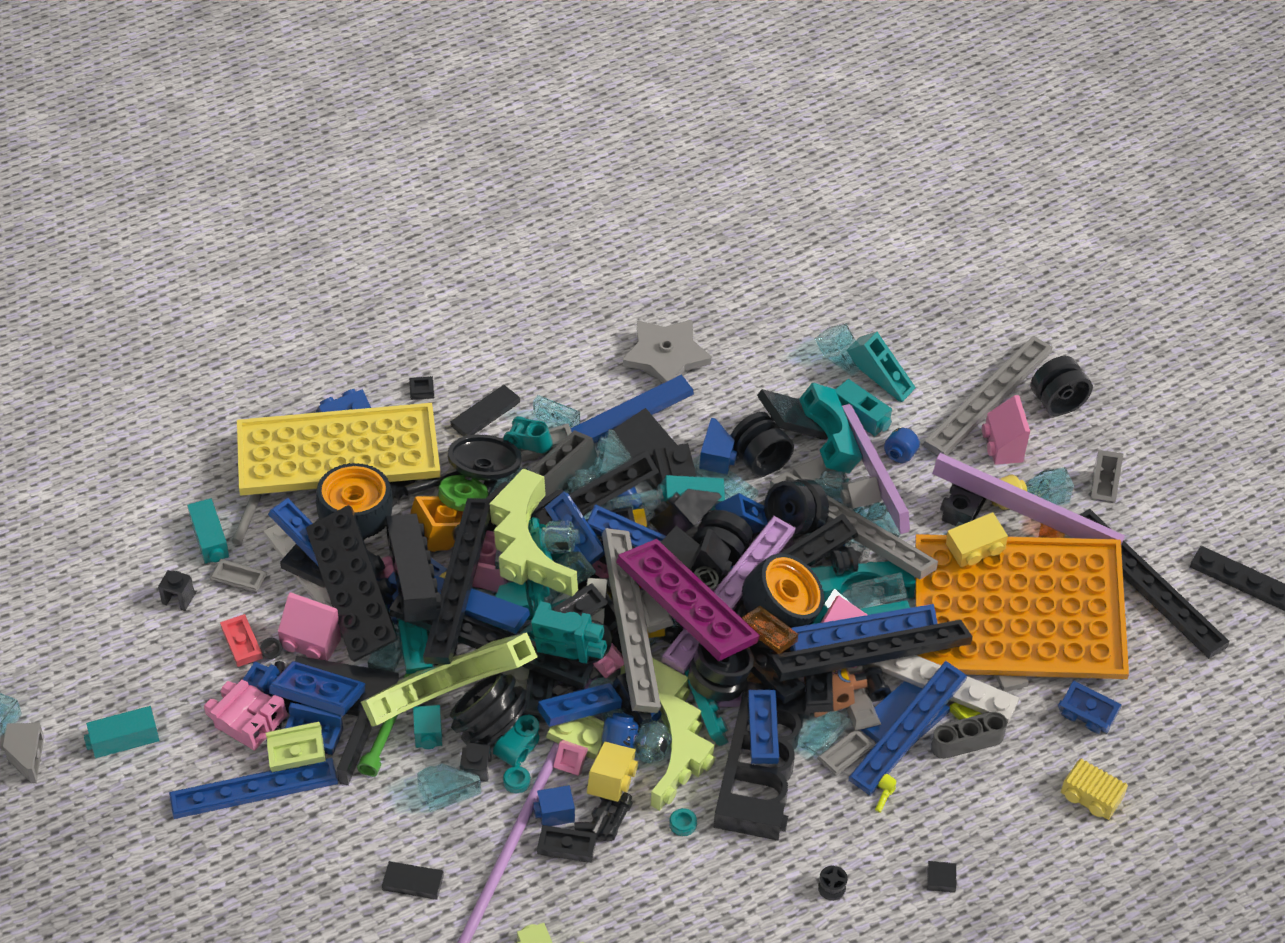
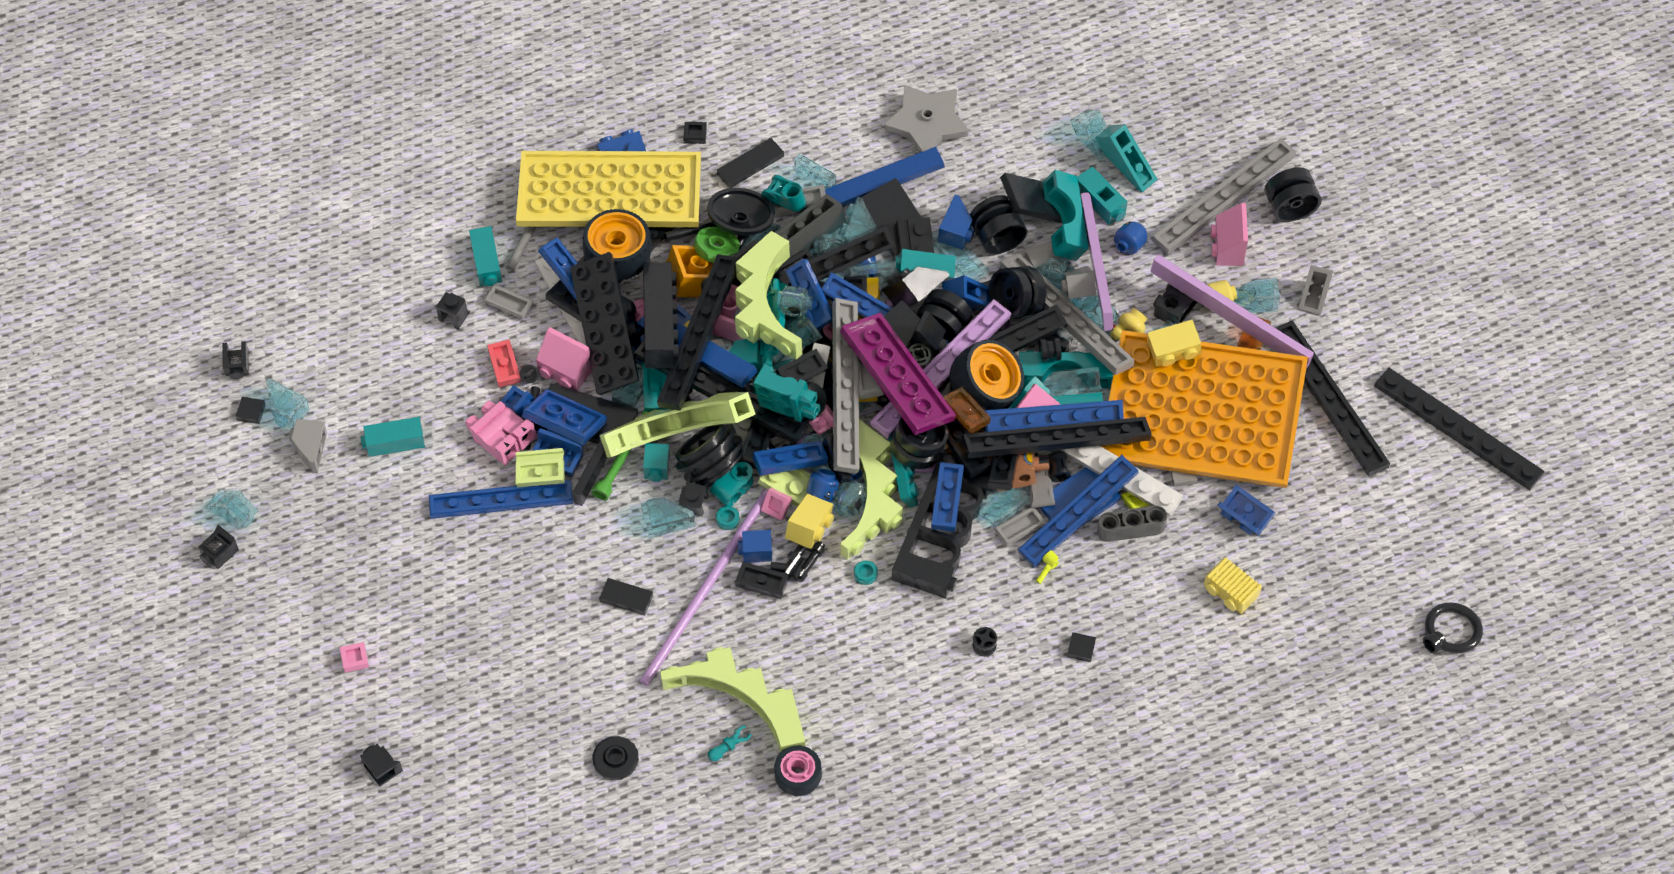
camera: 10 degrees right, 10 degrees up
(920, 525) = (1129, 321): none -> light yellow animal

